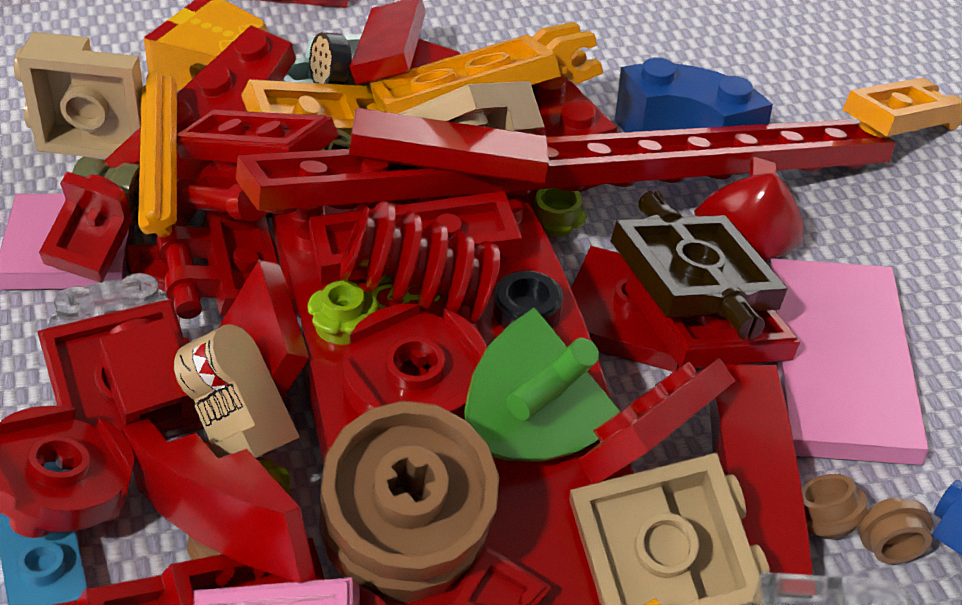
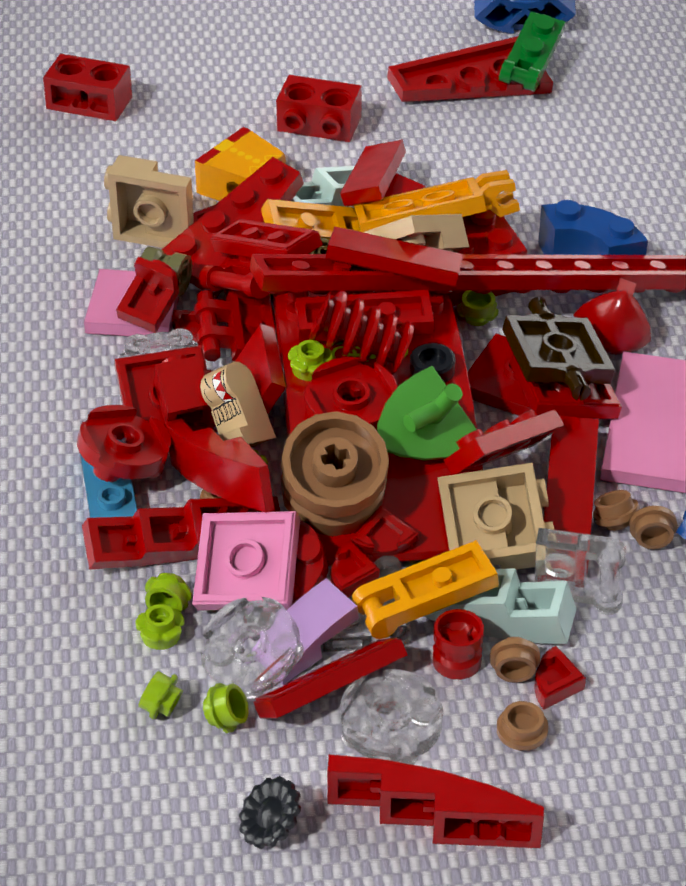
camera: 10 degrees right, 0 degrees up
(158, 155) = (199, 247): light orange axle -> none
(330, 59) = (327, 186): black tile -> none

